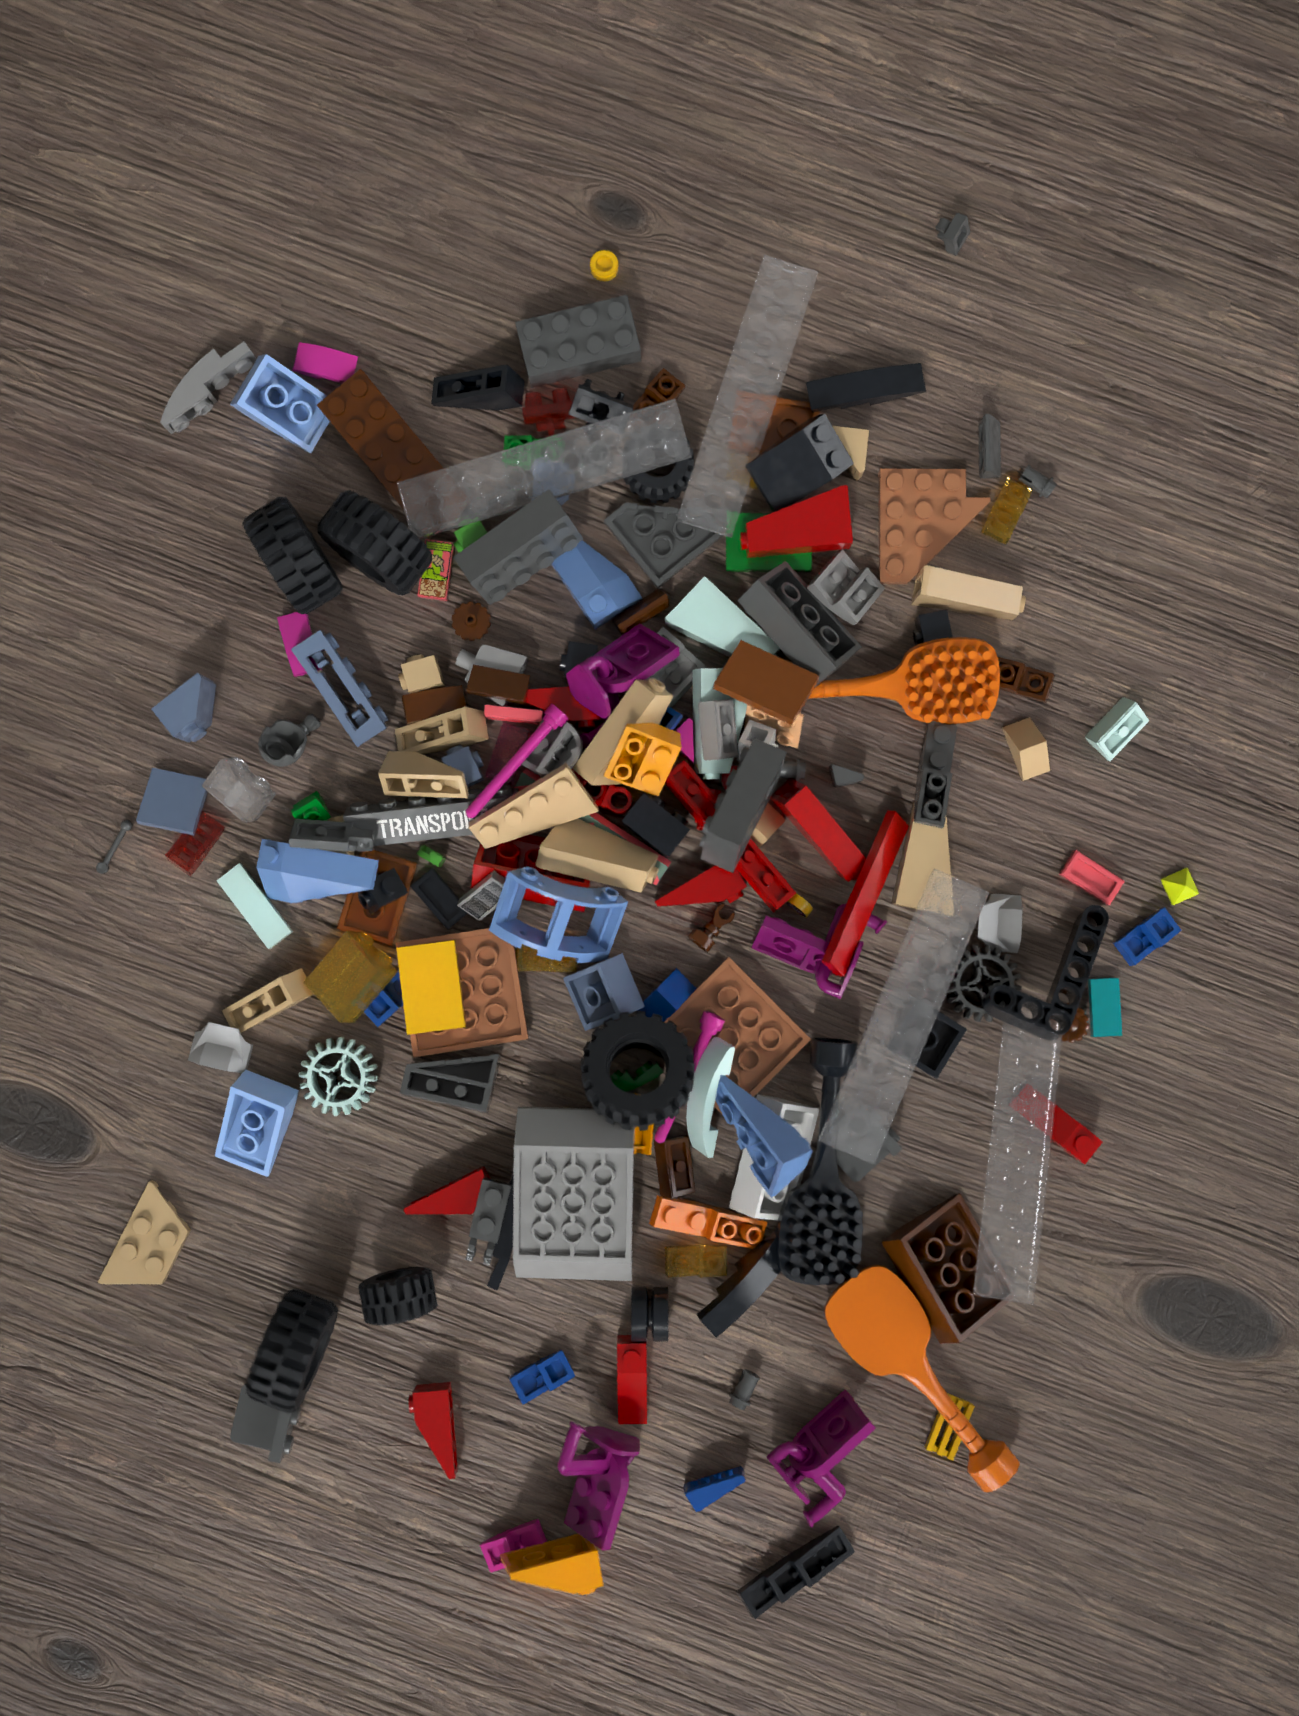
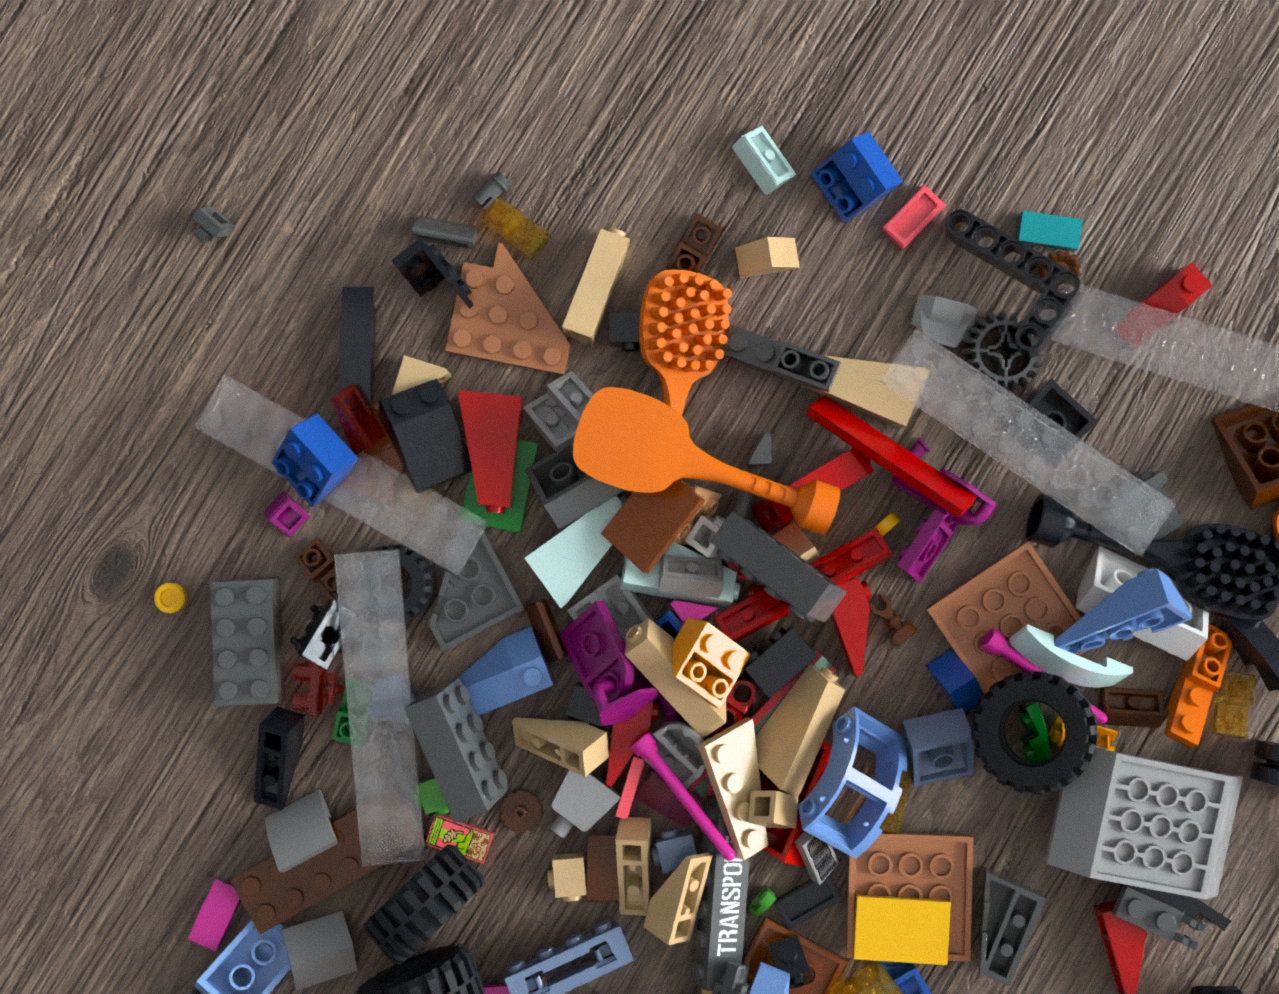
camera: 80 degrees left, 0 degrees up
(311, 462) = (319, 949): none -> light grey slope
(416, 423) = (300, 831): none -> light grey slope
(498, 684) = (597, 799): reddish brown slope -> none
(520, 844) = (773, 809): none -> tan brick
(542, 644) = (566, 743): none -> tan slope
(700, 354) = (286, 514): none -> magenta slope
(757, 365) = (314, 459): none -> blue slope
(793, 411) = (359, 434): none -> clear red slope
(830, 658) = (647, 447): none -> orange piece
(949, 434) = (427, 267): none -> black bracket
(1119, 816) = (856, 176): none -> blue slope
(1147, 936) = (984, 173): blue slope -> none
(1179, 886) = (938, 129): neon yellow slope -> none

